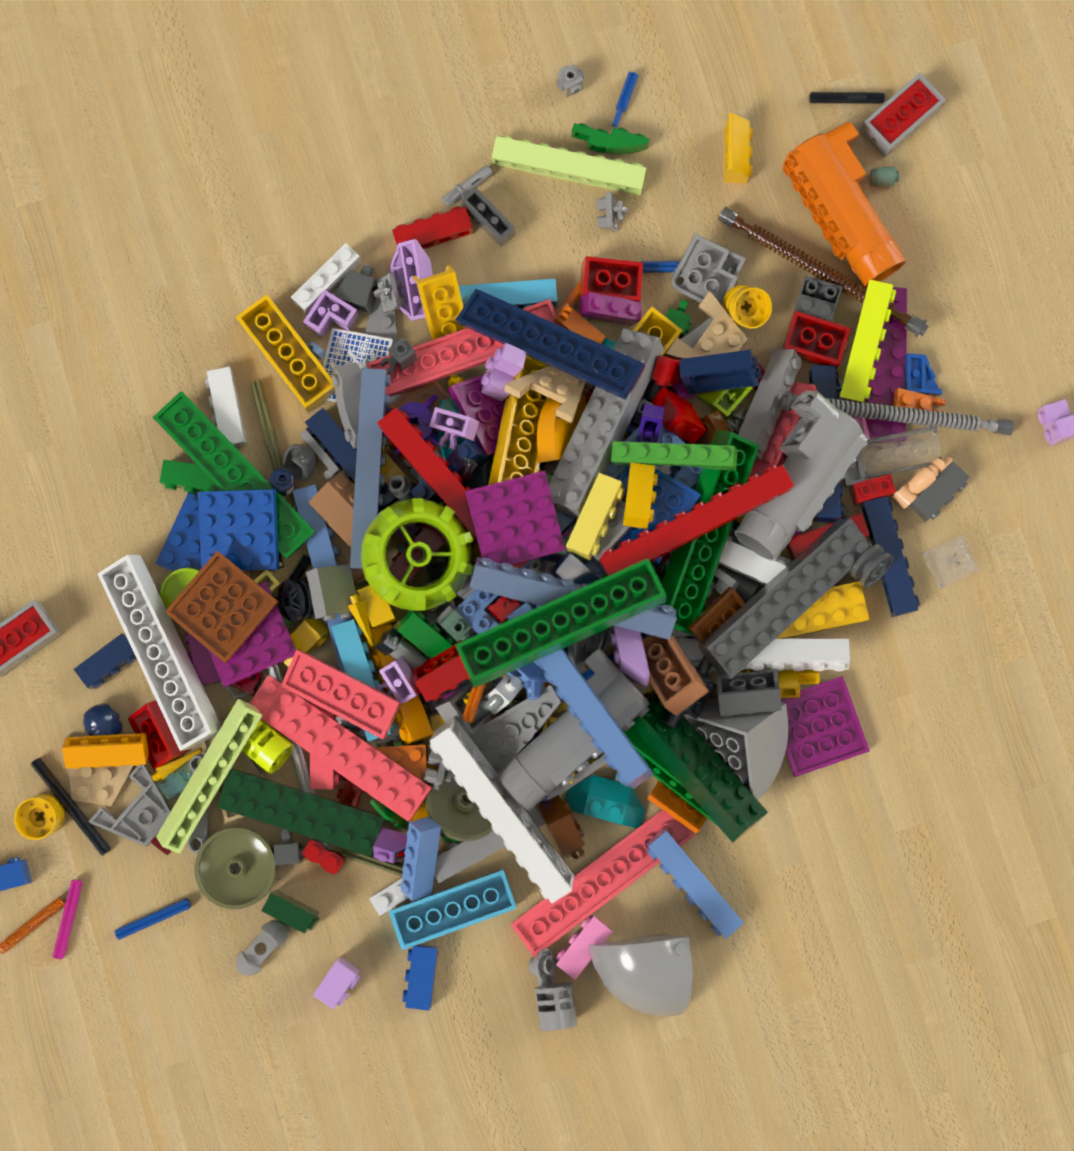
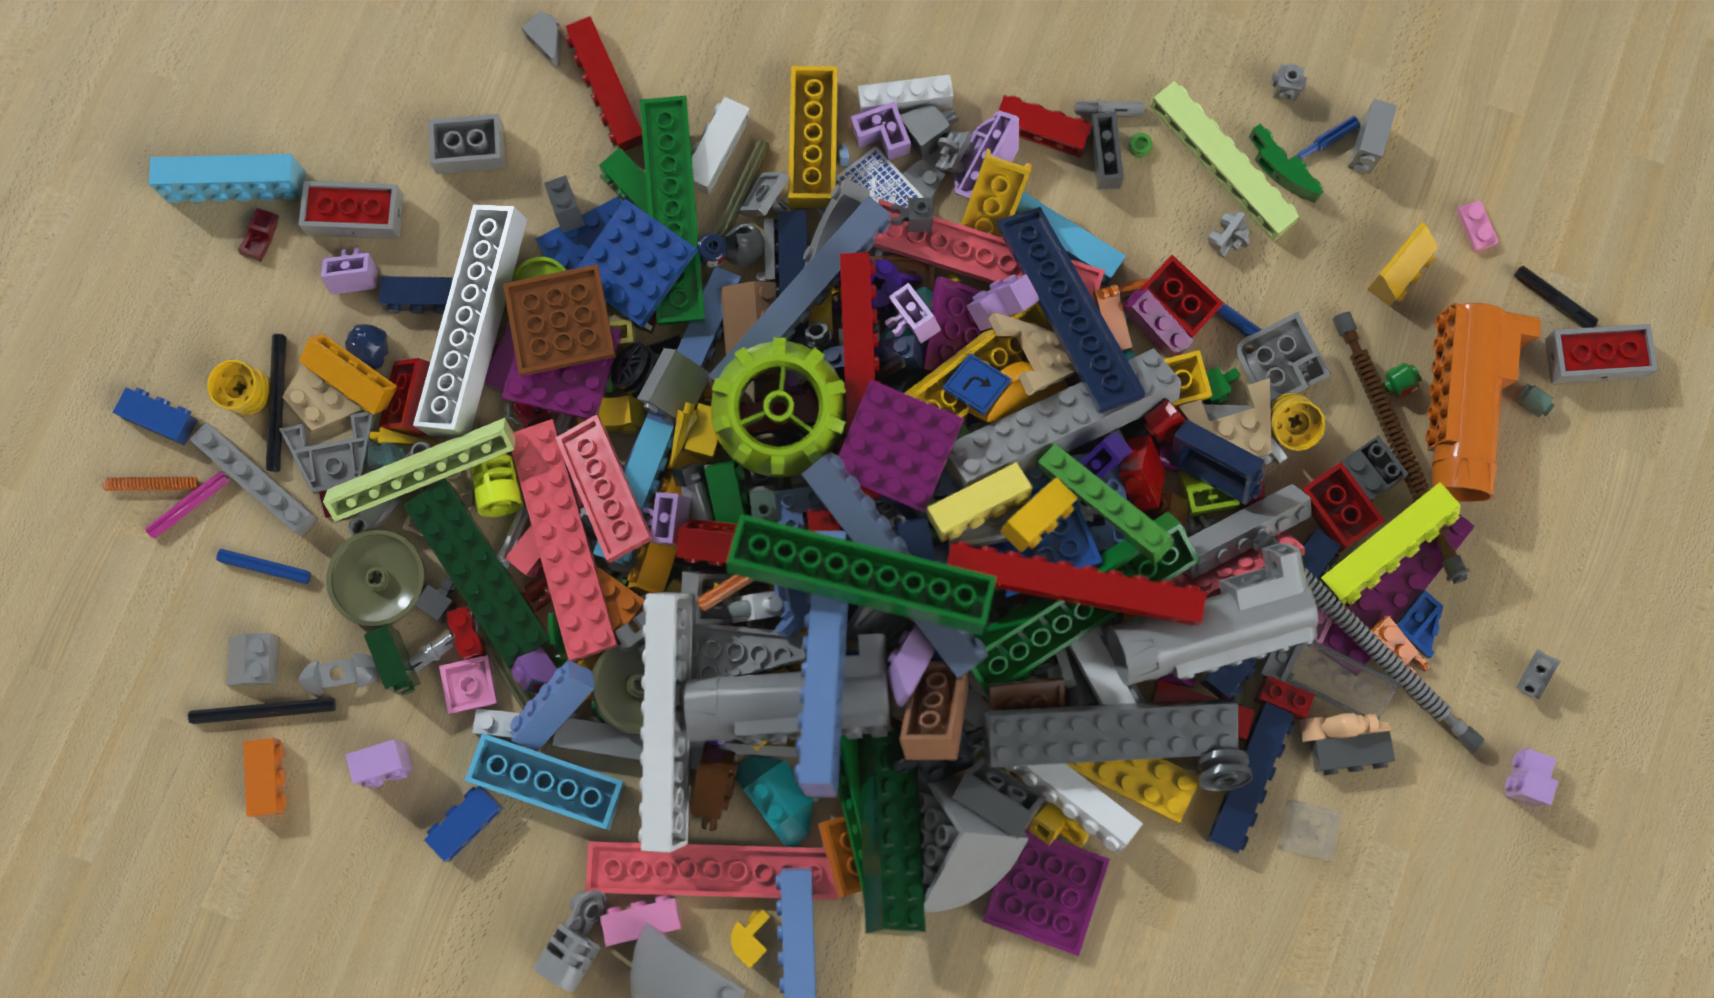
camera: 40 degrees right, 5 degrees down
(48, 421) = (544, 35): none -> light grey slope
(49, 682) = (349, 272): none -> lavender brick
(57, 535) = (467, 144): none -> light grey brick
(99, 868) = (254, 479): none -> light grey brick
(117, 423) = (604, 83): none -> red brick
(157, 525) = (564, 204): none -> dark grey brick
(197, 984) = (253, 660): none -> light grey slope
(230, 1011) = (262, 710): none -> black axle
(268, 1051) = (264, 777): none -> orange brick
(286, 417) = (765, 195): none -> light grey tile
(311, 885) = (433, 652): none -> light grey pin
(351, 887) = (468, 684): none -> bright pink plate
(505, 195) = (1140, 145): none -> bright green tile
(532, 440) = (977, 384): none -> blue piece
(653, 78) = (1372, 136): none -> light grey brick
(659, 908) = (745, 943): none -> yellow brick
(751, 335) = (1276, 453): none -> white tile
(762, 87) = (1477, 226): none -> bright pink plate
(792, 226) = (1402, 380): none -> green head
(1015, 354) = (1538, 674): none -> light grey hips

